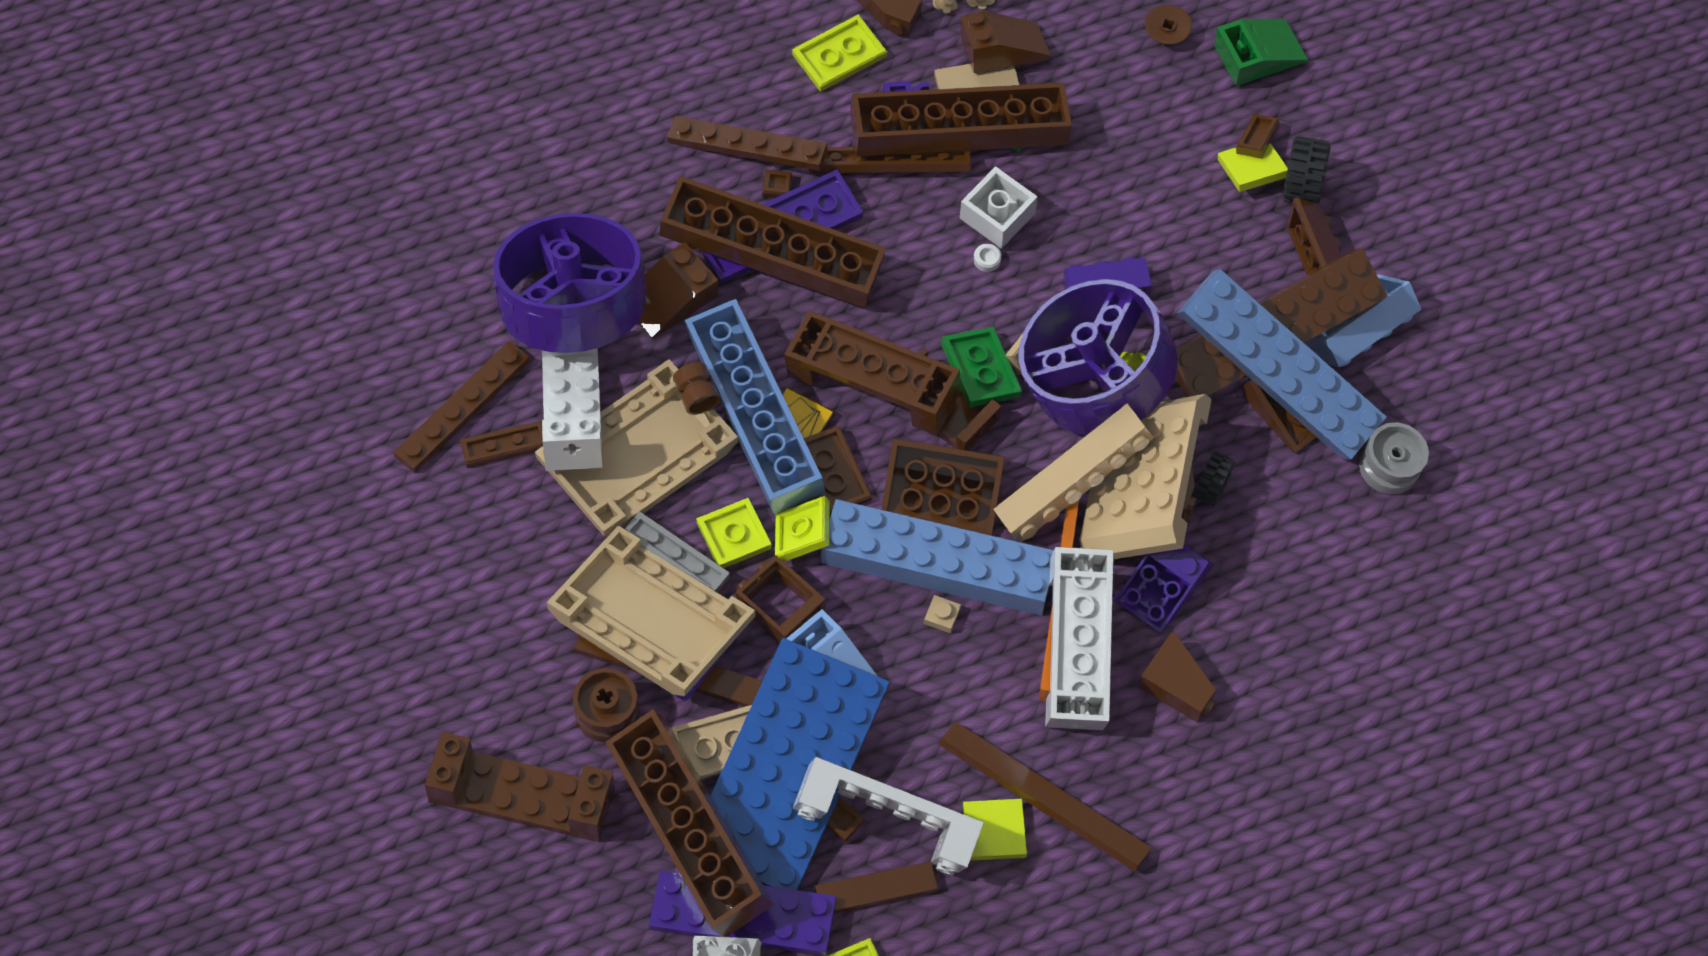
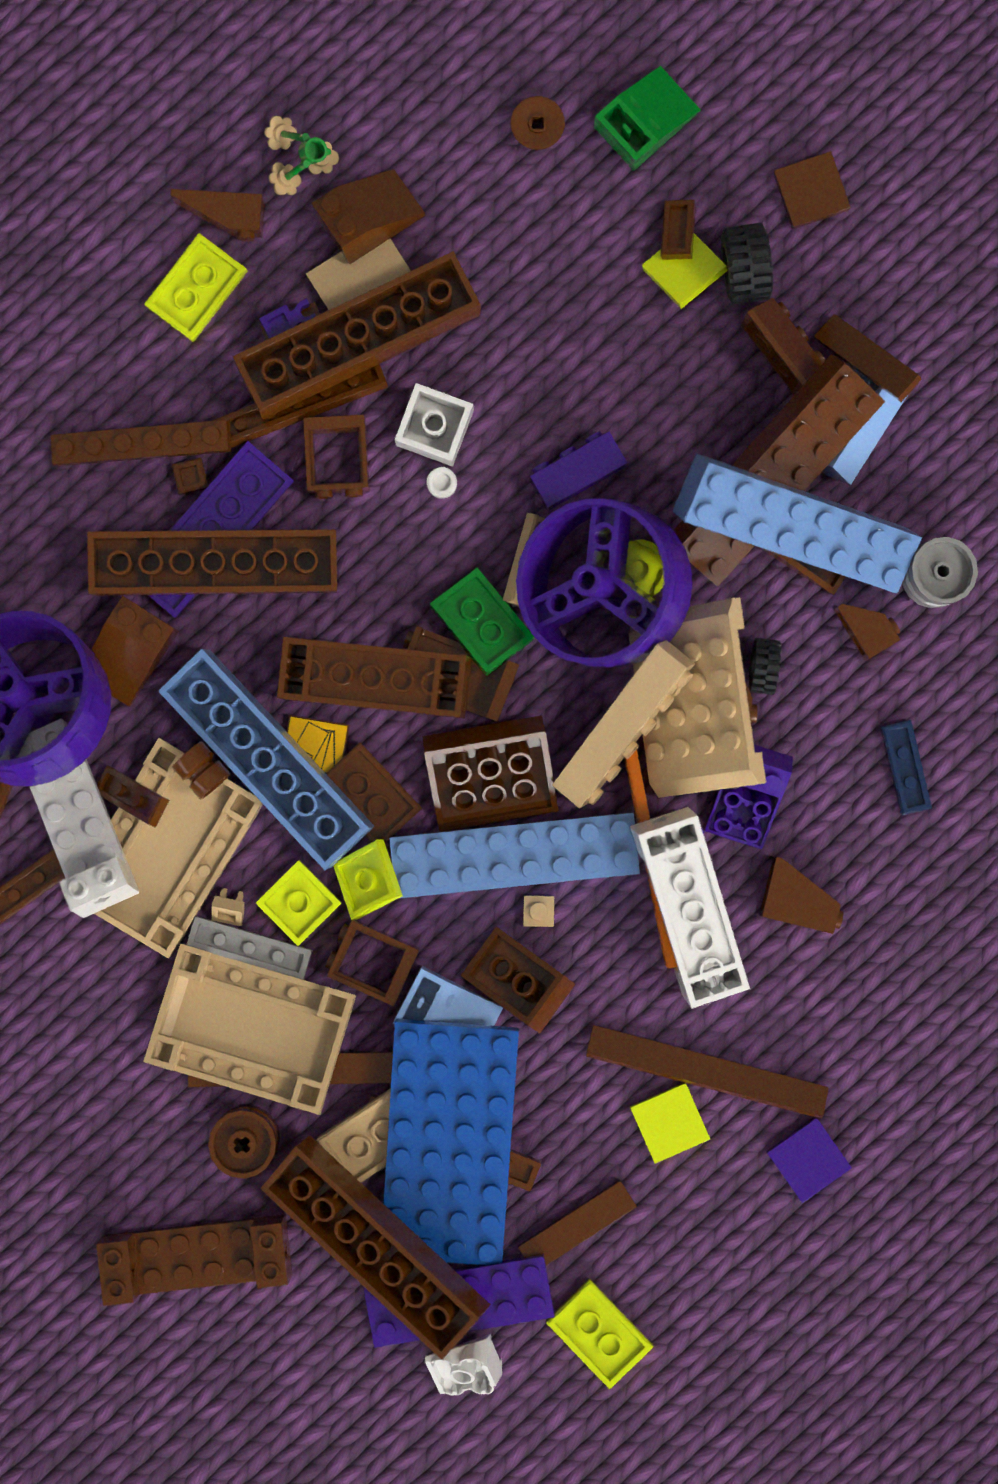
camera: 15 degrees left, 25 degrees up
(627, 394) = (132, 796): none -> reddish brown tile
(670, 516) = (228, 910): none -> tan tile
(904, 659) = (518, 980): none -> reddish brown slope
(912, 183) = (332, 425): none -> reddish brown window
(958, 830) = (634, 1157): white plate -> none
(1111, 906) = (809, 1159): none -> dark purple tile
(1313, 610) = (906, 767): none -> dark blue tile
(1316, 485) = (868, 629): none -> reddish brown slope
(1381, 146) = (811, 190): none -> reddish brown tile
(1393, 277) = (868, 358): none -> reddish brown tile

